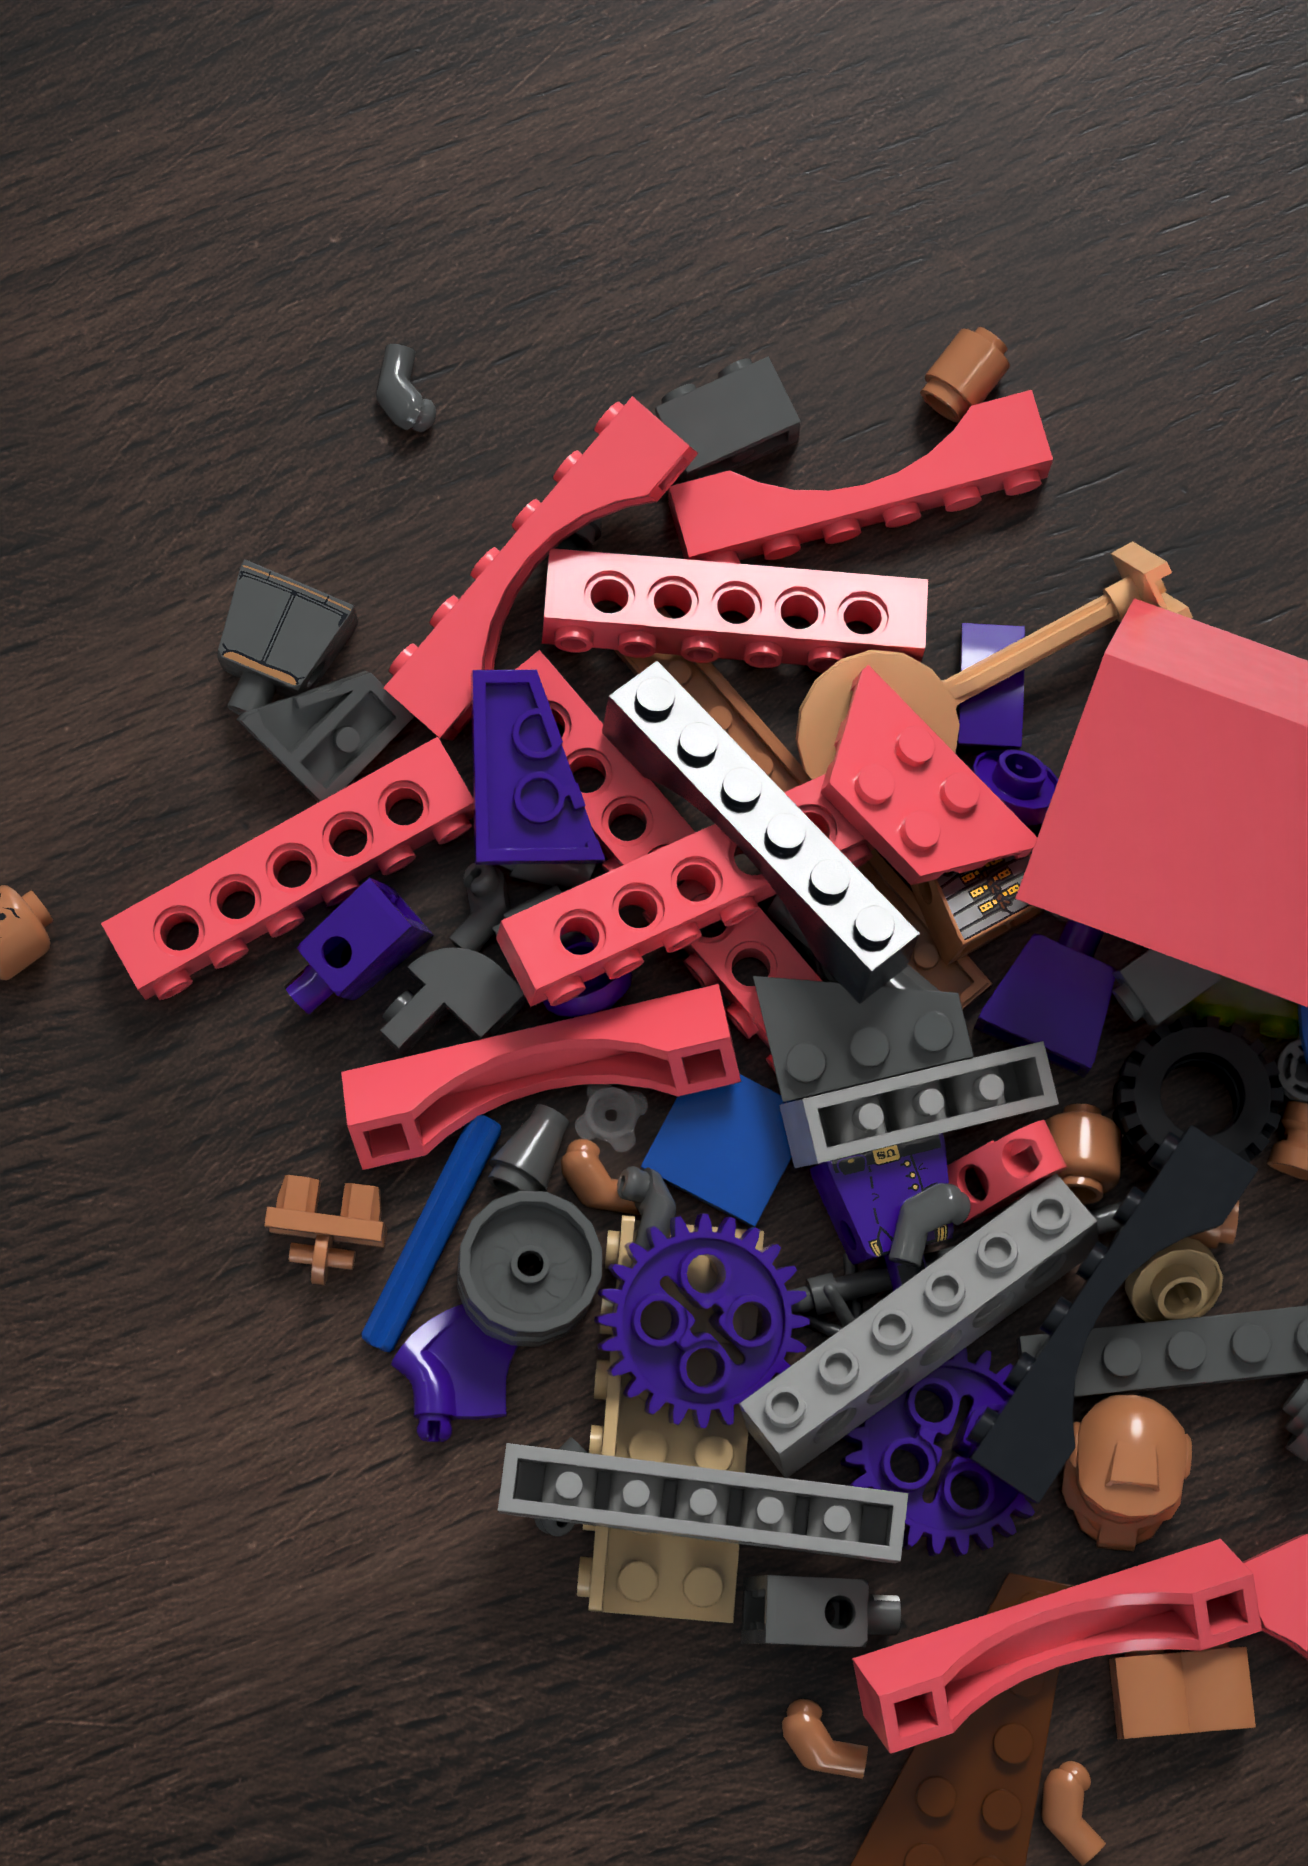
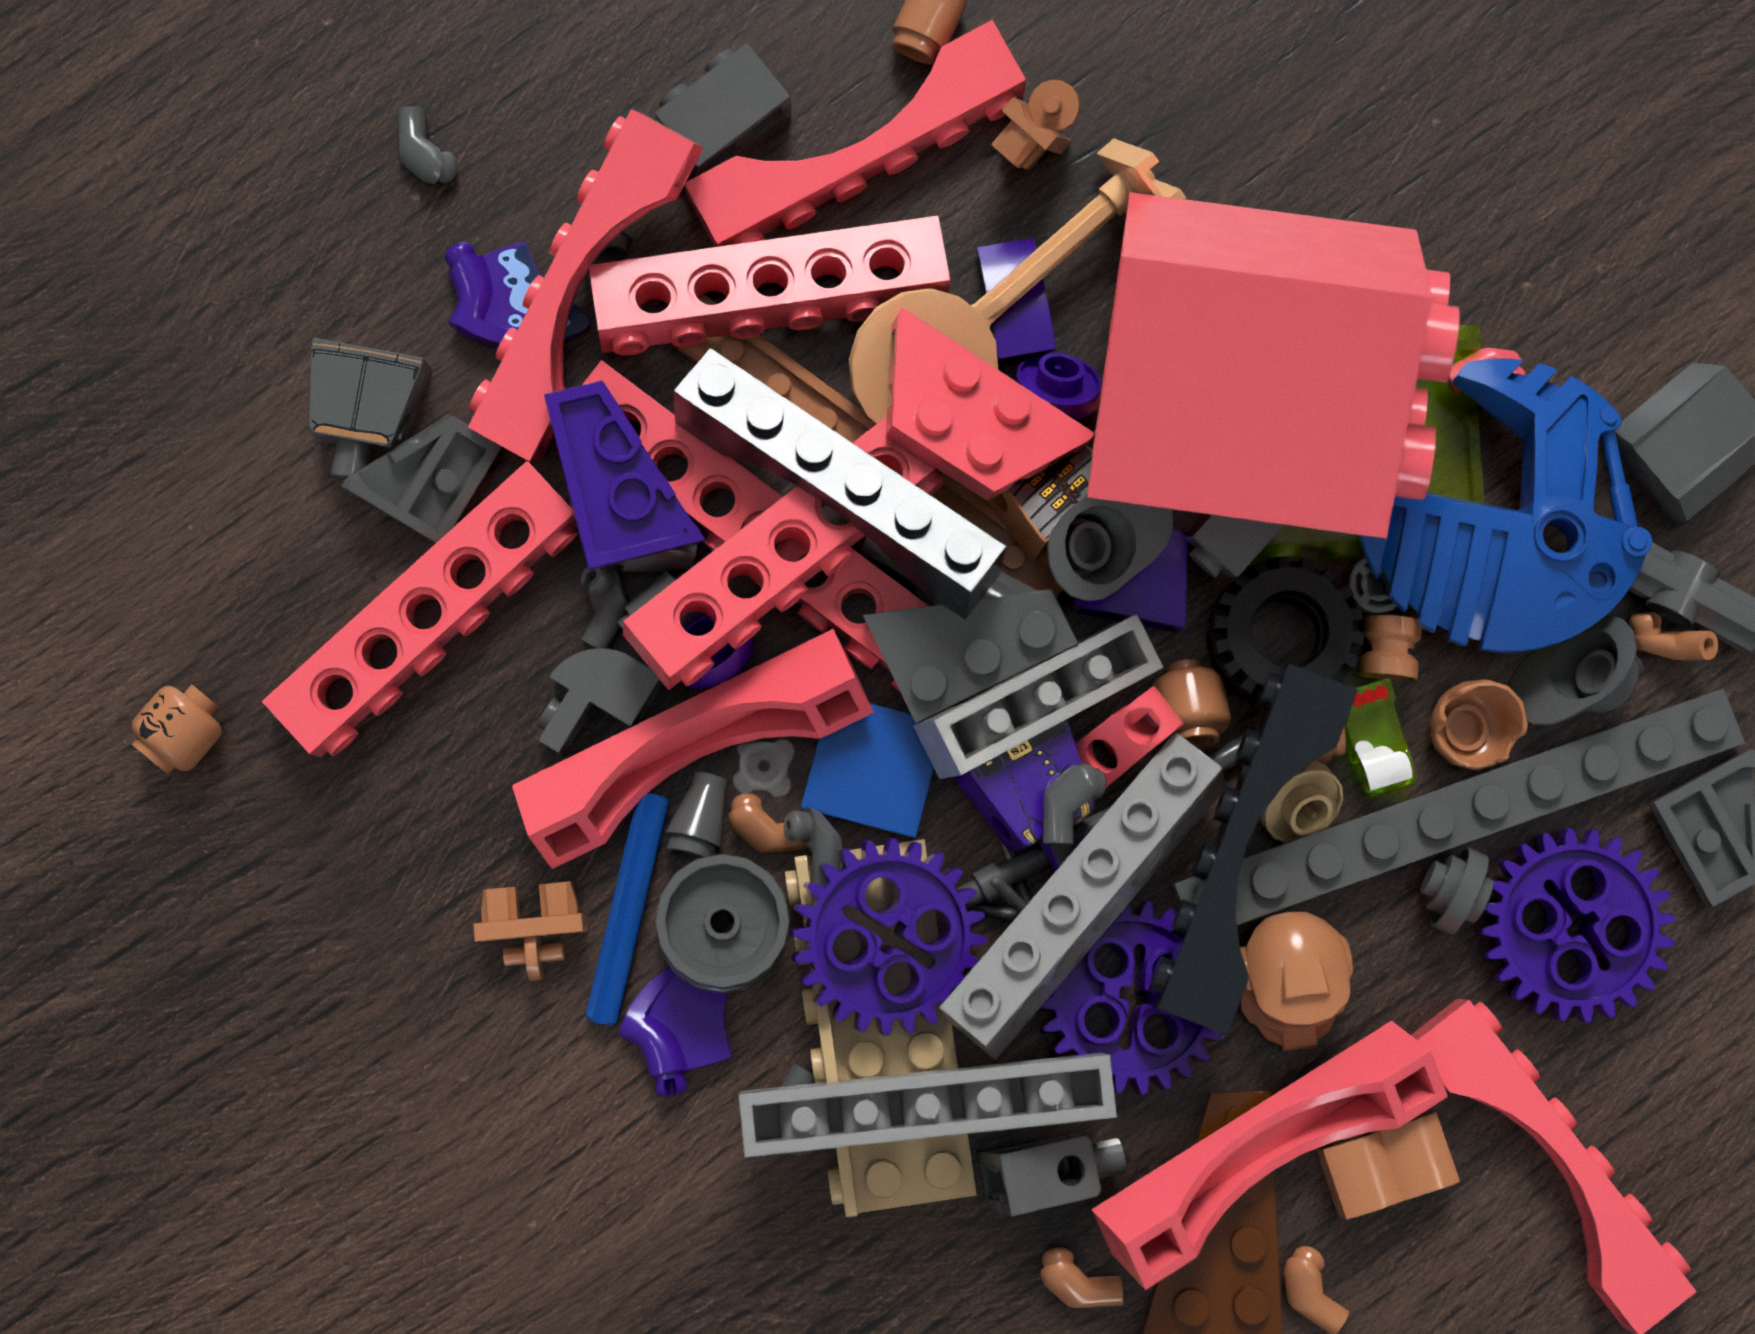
camera: 15 degrees left, 5 degrees up
(380, 935) = (516, 650): dark purple torso -> none
(442, 554) = (493, 291): none -> dark purple arm
(1027, 958) = (1105, 545): none -> dark grey piece
(1054, 507) = (1037, 124): none -> nougat hips
(1271, 1236) = (1377, 741): none -> clear neon green leg

